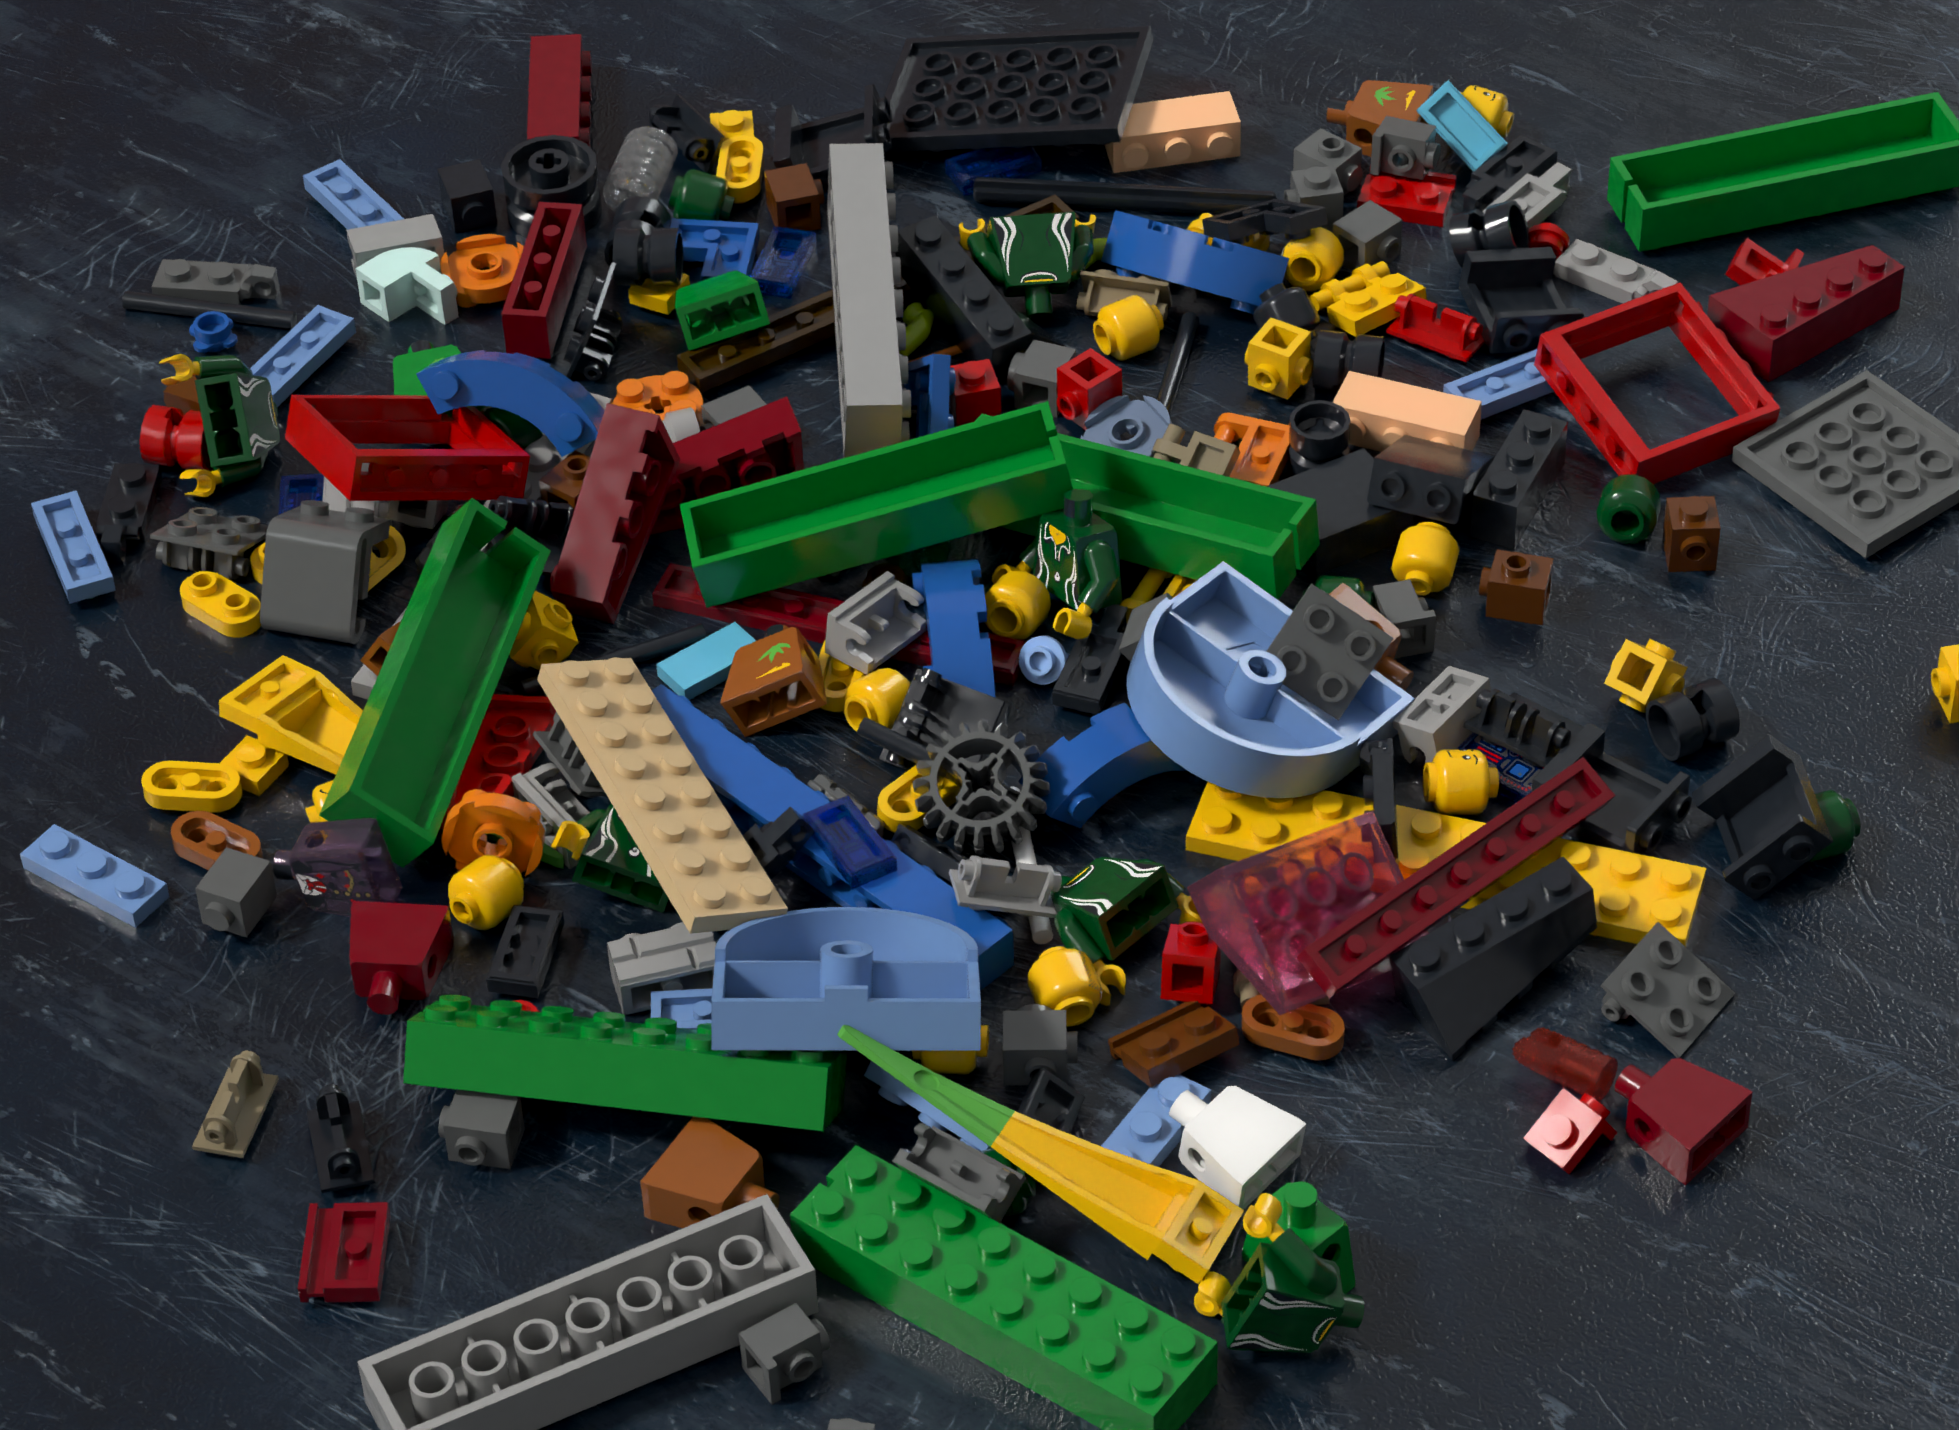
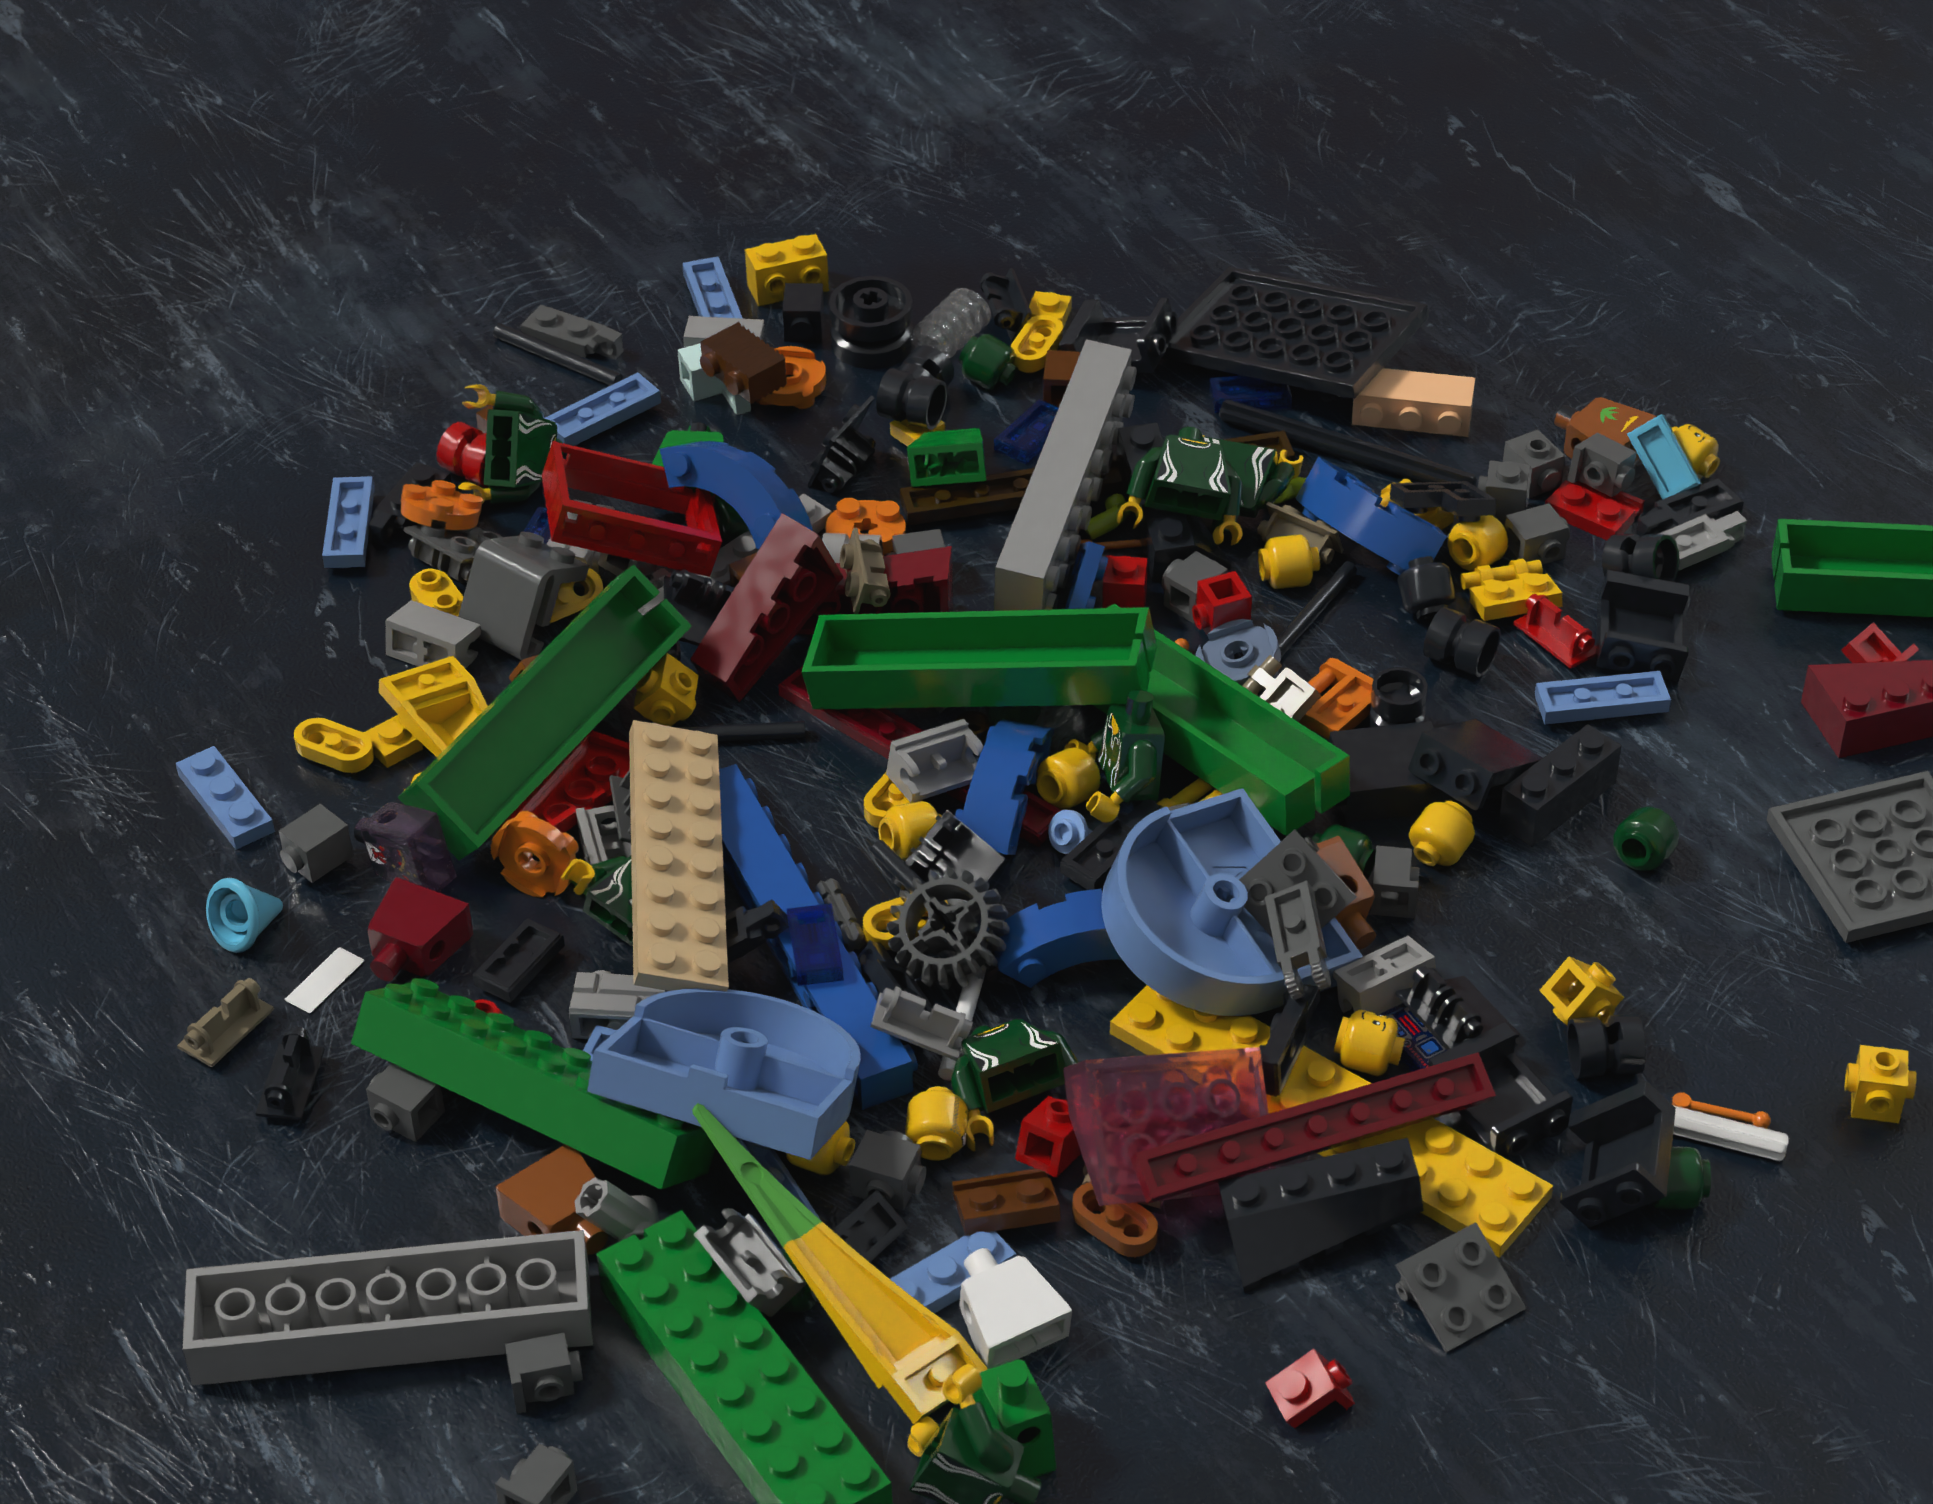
camera: 20 degrees right, 0 degrees up
(173, 500) = (440, 503): none -> orange plate
(186, 991) = (239, 913): none -> medium azure hat
(204, 836) = (323, 786): dark orange plate -> none
(212, 332) = (549, 374): blue plate -> none
(237, 643) = (426, 634): none -> light grey hinge
(315, 1034) = (324, 980): none -> white sticker
(344, 1252) = (244, 1172): dark red plate -> none
(413, 154) = (785, 262): none -> yellow brick
(445, 262) = (743, 363): none -> reddish brown brick
(485, 892) = (510, 900): yellow head -> none
(544, 279) = (823, 397): dark red brick -> none
(559, 87) = (921, 243): dark red brick -> none
(704, 448) = (864, 572): none -> dark tan hinge
(704, 662) = (797, 756): medium azure tile -> none
(719, 244) = (984, 405): blue plate -> none
(773, 681) = (831, 786): dark orange torso -> none
(784, 1167) = (615, 1210): none -> light grey piece
(999, 265) = (1187, 479): none -> dark green torso
(1279, 358) = (1400, 622): yellow brick -> none
(1356, 690) = (1297, 936): none -> dark grey hinge
(1388, 410) = (1467, 691): light nougat brick -> none
(1517, 586) = (1511, 882): reddish brown brick -> none
(1549, 236) = (1697, 577): red plate -> none
(1567, 1062) = (1338, 1326): clear red hinge -> none
(1608, 273) = (1743, 626): light grey hinge -> none
(1612, 434) = (1719, 670): red window -> none
(1683, 1114) = (1417, 1407): dark red torso -> none
(1688, 524) = (1690, 876): reddish brown brick -> none
(1857, 770) = (1730, 1134): none -> white axle
(1868, 750) = (1759, 1119): none -> orange hinge

